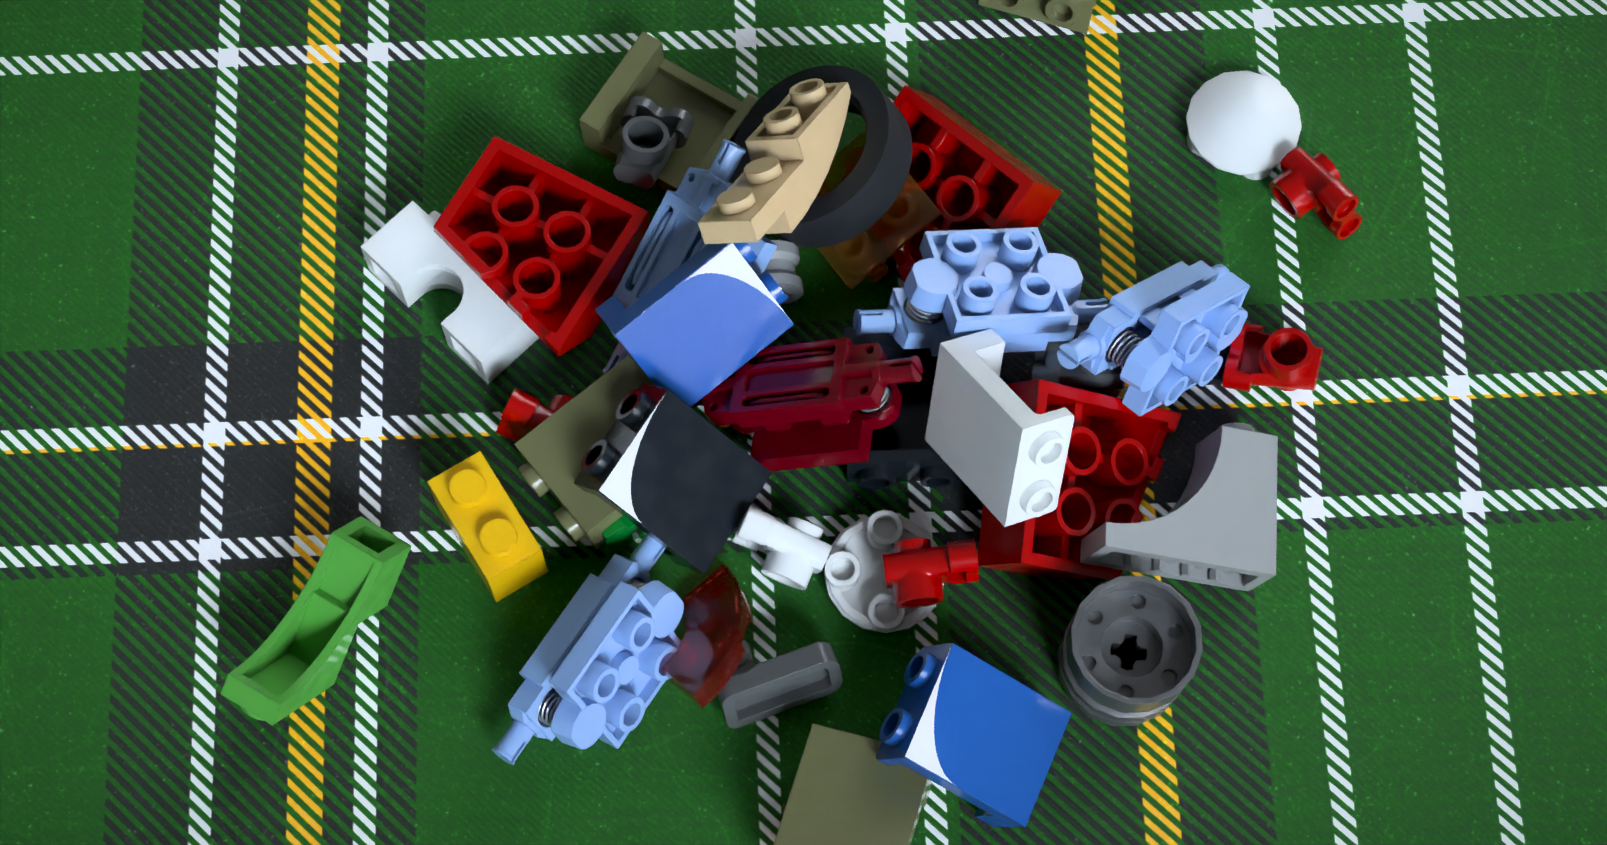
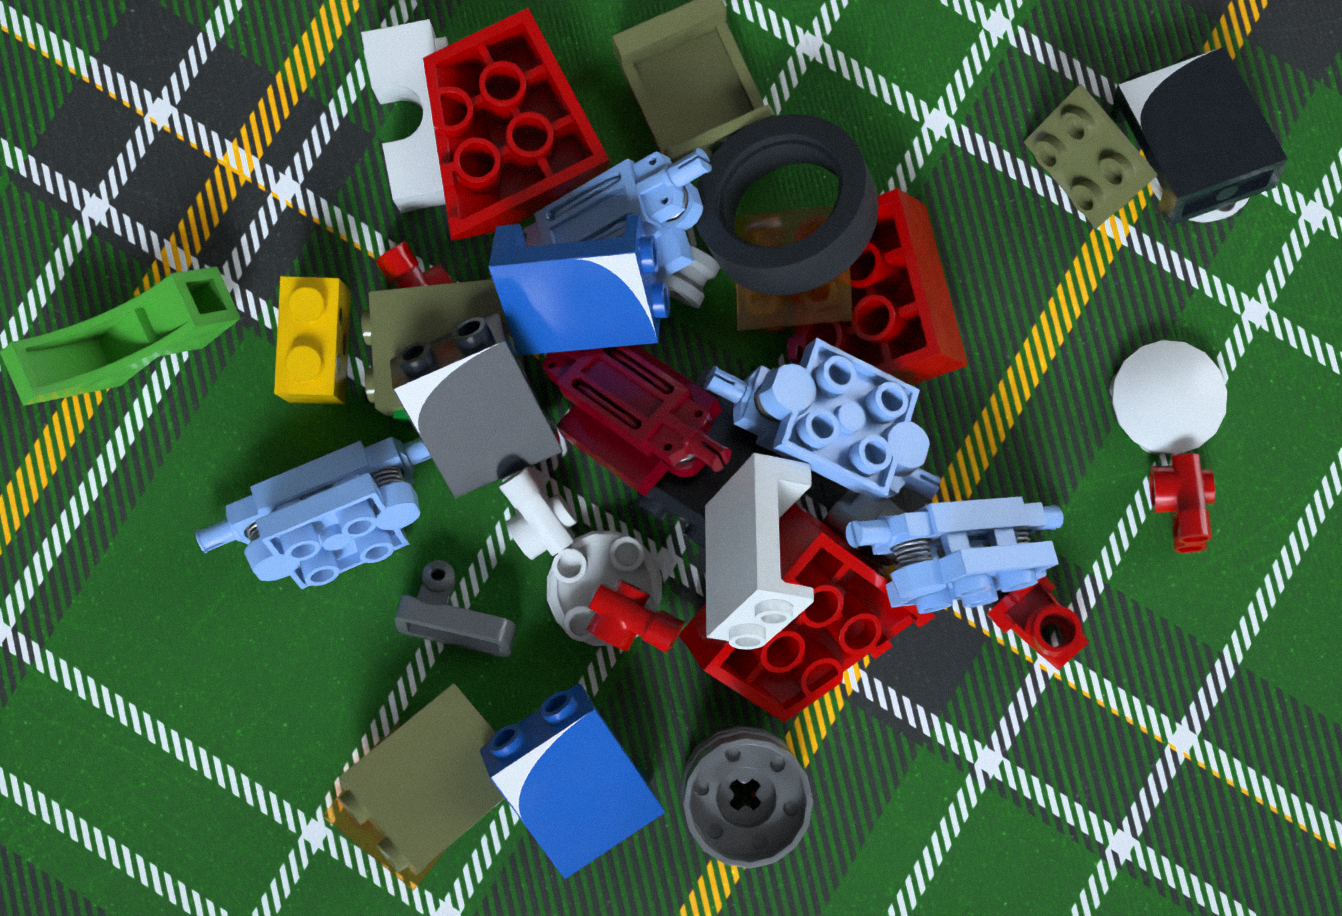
camera: 30 degrees right, 15 degrees up
(649, 140) = (666, 88): dark grey plate -> none
(713, 637) = (432, 551): clear red tile -> none
(786, 168) = (741, 204): tan slope -> none
(1219, 527) = (899, 731): light grey arch -> none

